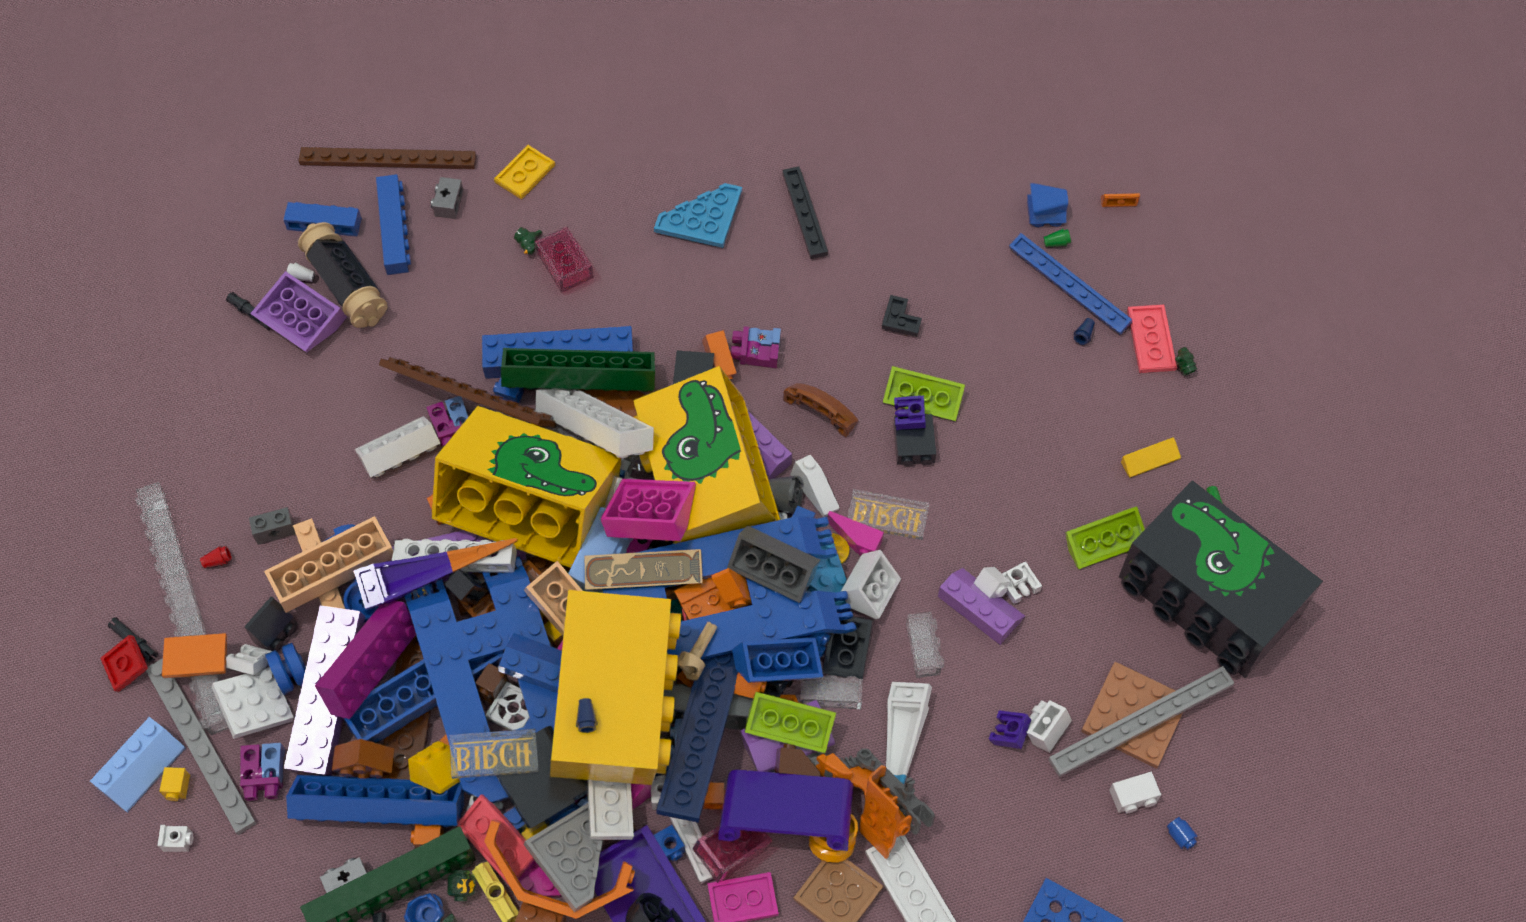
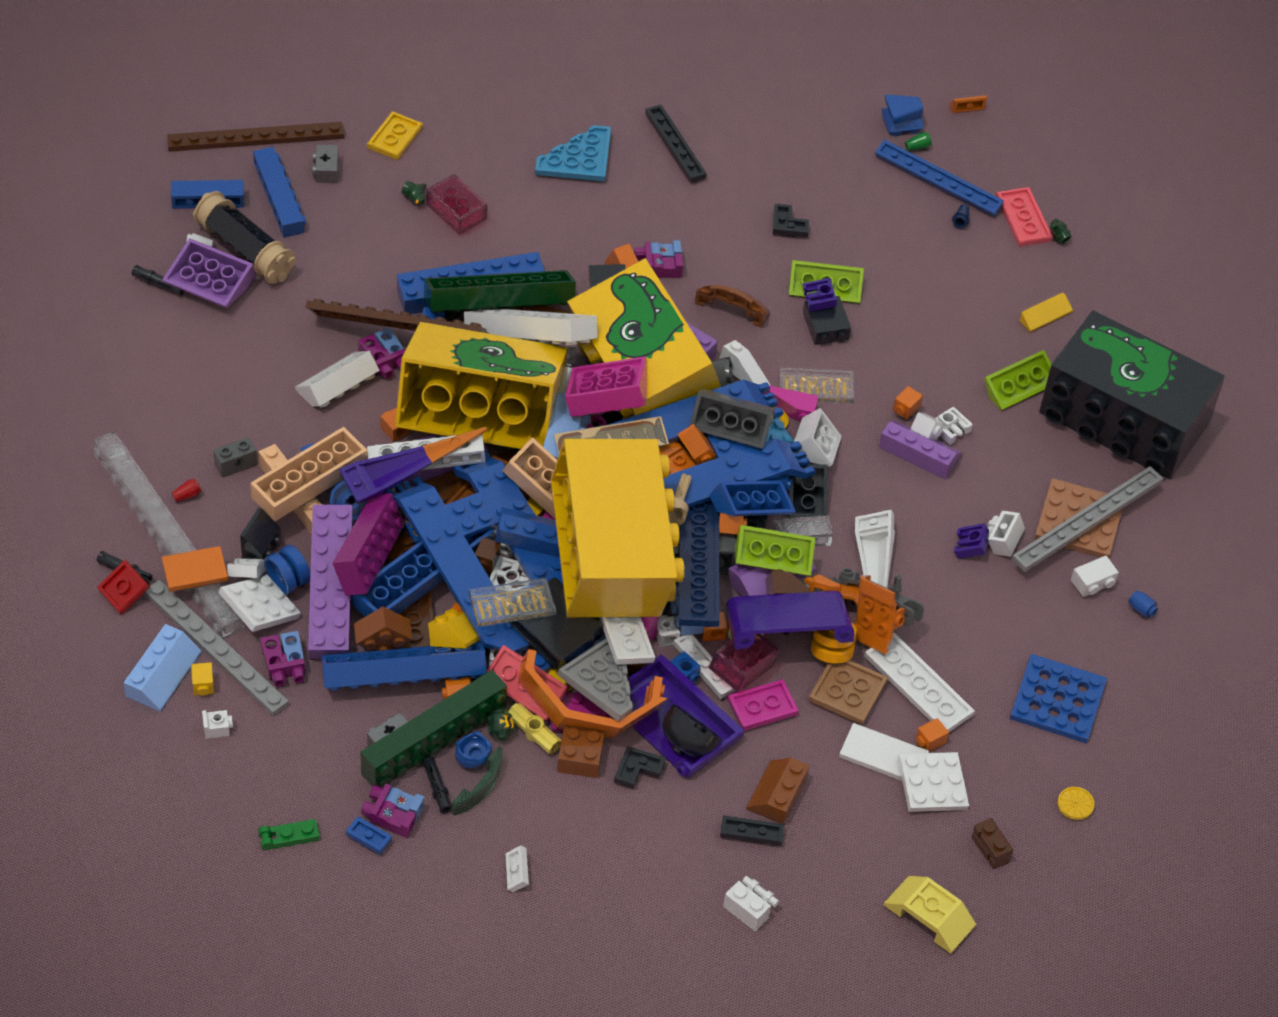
camera: 15 degrees left, 10 degrees down
(466, 586) = (443, 479): black brick -> none
(586, 716) = (606, 539): dark blue cone -> none
(924, 644) = (877, 484): clear brick -> none
(977, 551) = (907, 402): none -> orange brick

